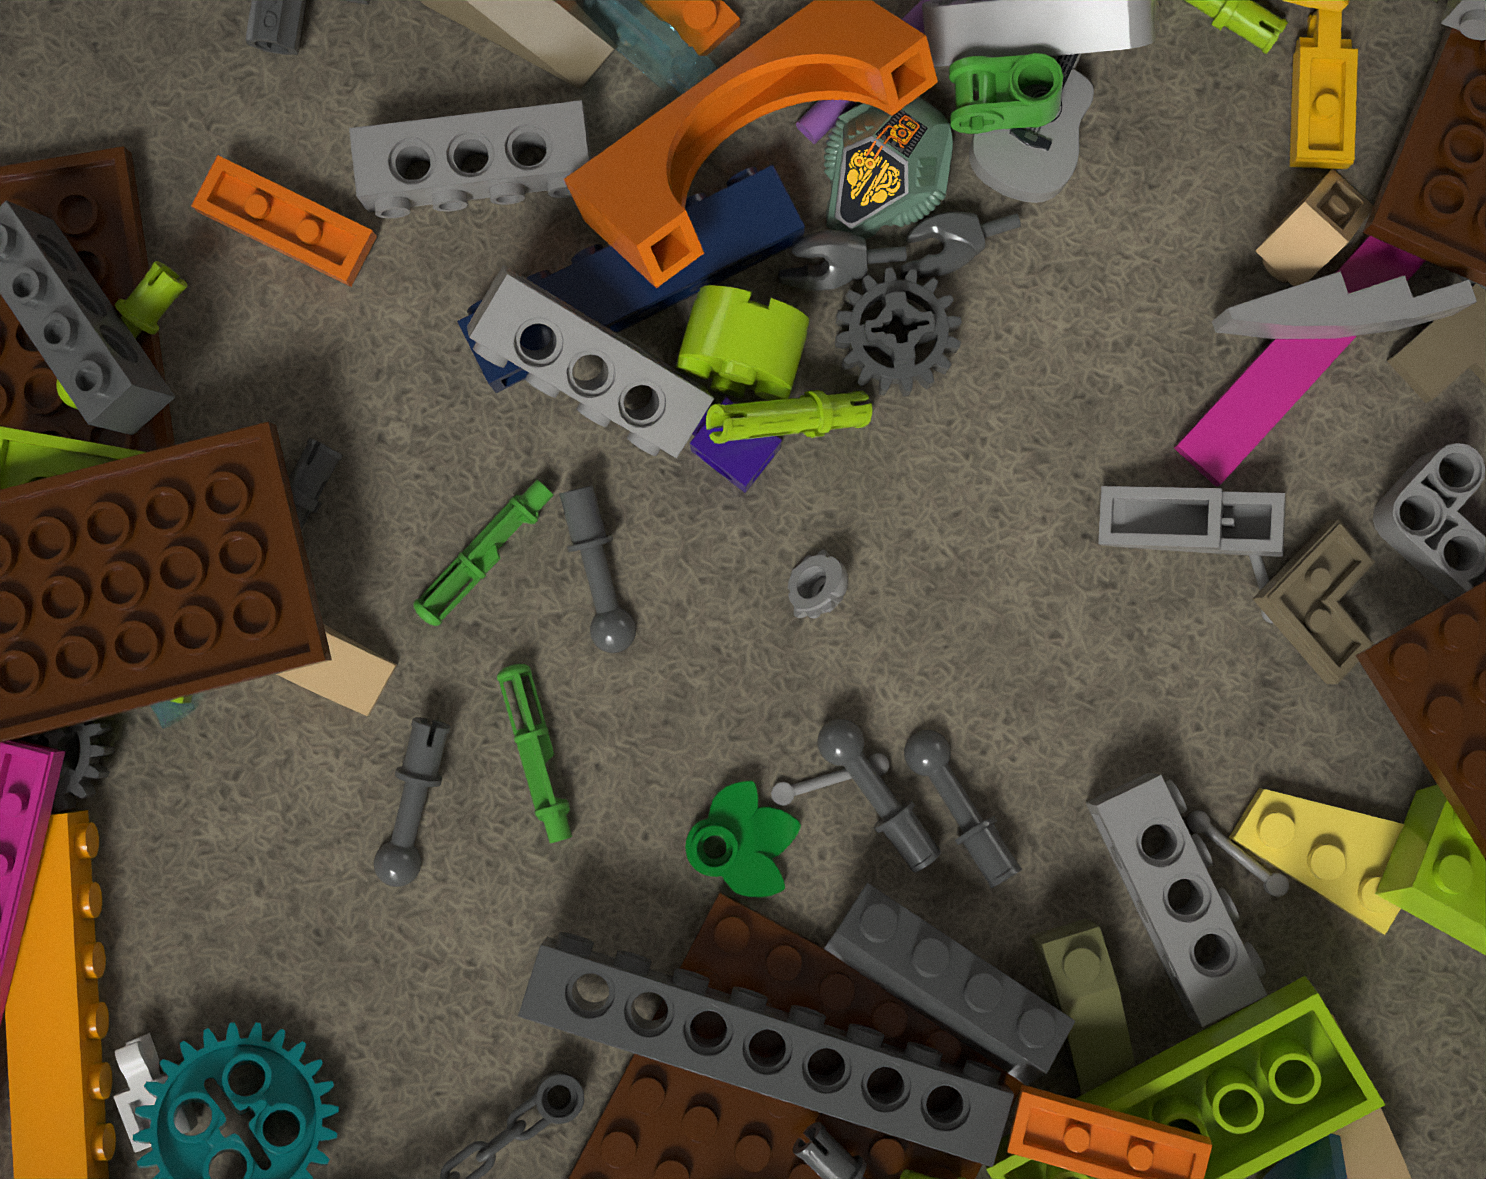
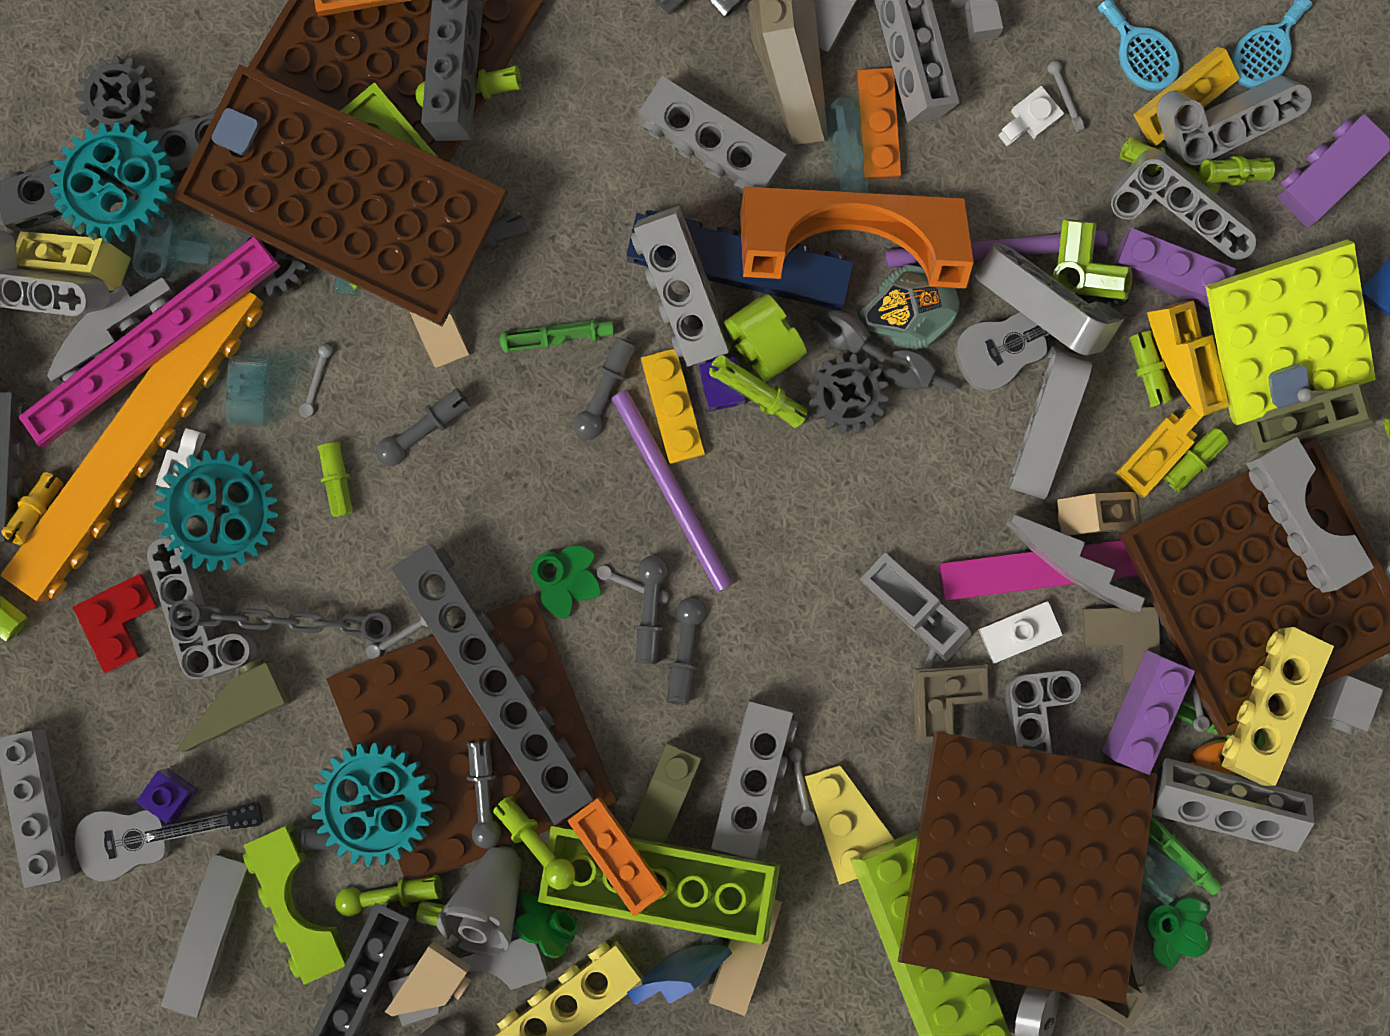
camera: 40 degrees right, 0 degrees up
(155, 938) = (247, 390): none -> clear light blue beam
(251, 897) = (307, 410): none -> light grey hinge
(284, 220) = (594, 93): orange plate -> none
(357, 955) = (335, 479): none -> lime axle
(534, 751) = (501, 452): bright green piece -> none
(582, 1125) = (374, 651): none -> light grey hinge
(697, 522) = (672, 406): none -> yellow plate
(782, 625) = (672, 490): none -> medium lavender piece
(817, 585) = (705, 485): light grey animal -> none
(950, 985) = (606, 725): dark grey brick -> none
(1000, 92) = (990, 314): bright green piece -> none
(1171, 162) = (1050, 422): none -> light grey beam
(1340, 448) = (1020, 632): none -> white plate
(1375, 69) = (1196, 460): none -> lime axle

